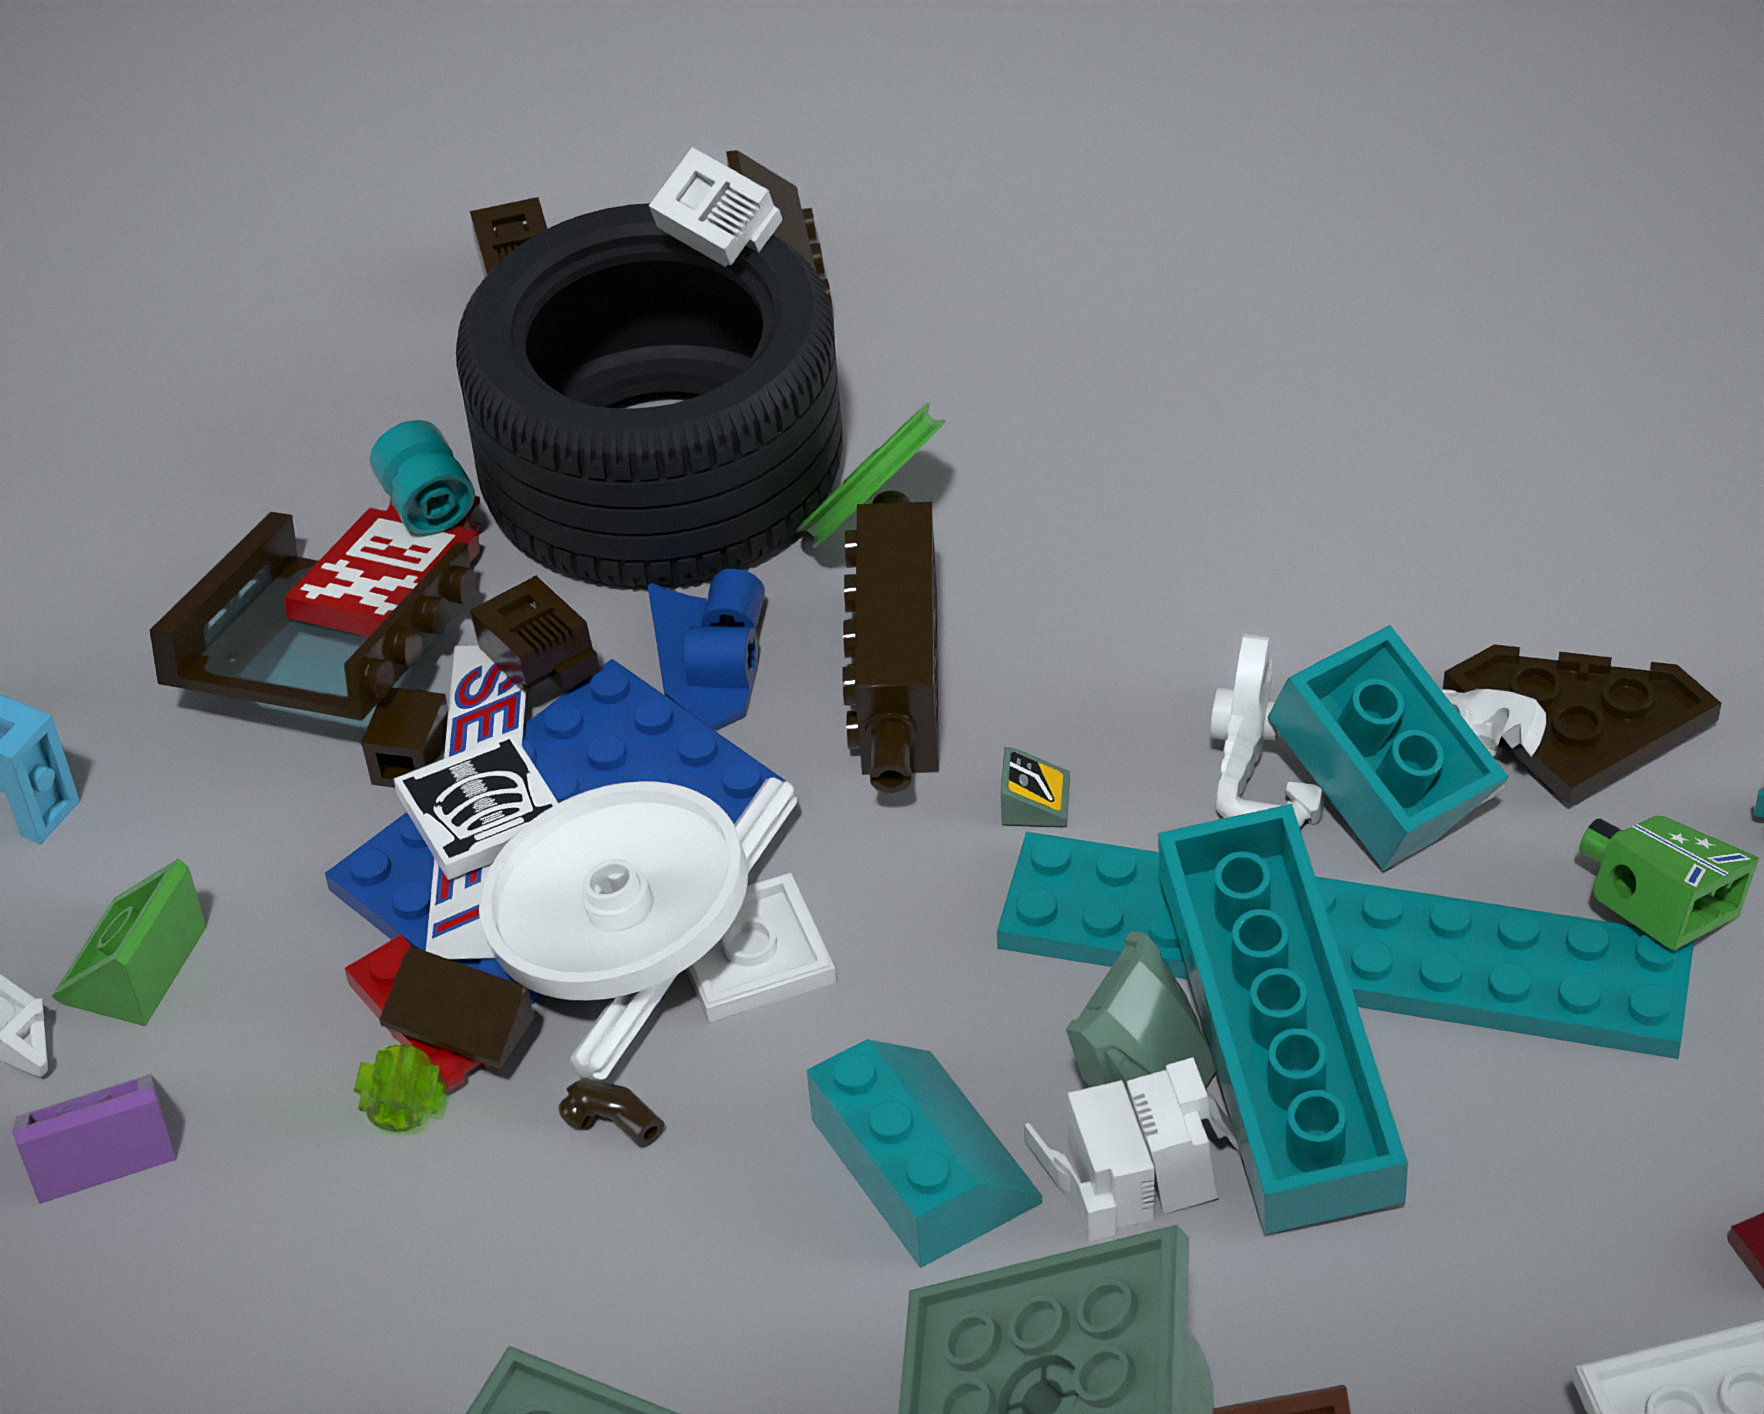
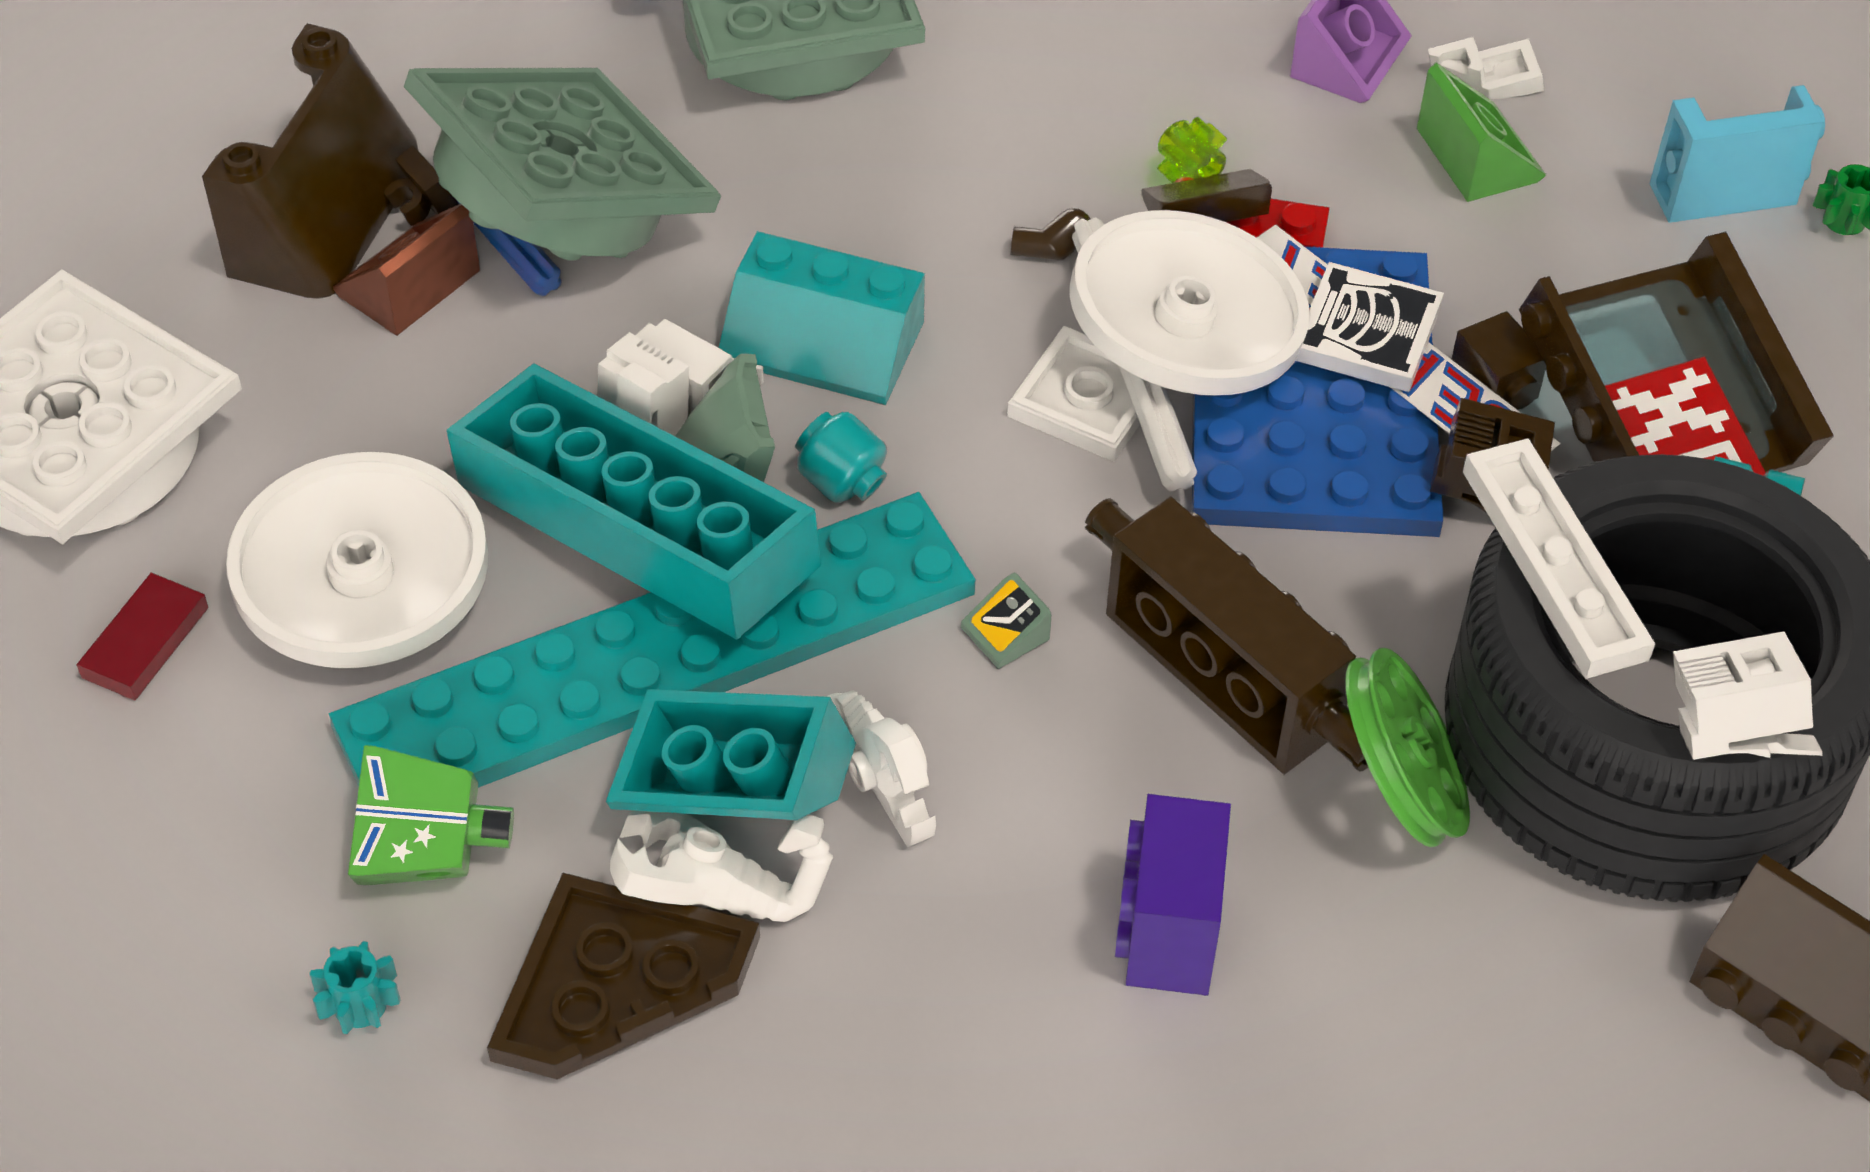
camera: 135 degrees right, 5 degrees up
(704, 362) = (1558, 559): none -> white plate
(709, 645) = (1397, 590): blue panel -> none
(1036, 991) = (841, 457): none -> teal head
(1130, 499) = (1173, 894): none -> dark purple brick
(1567, 1143) = (357, 559): none -> white dish

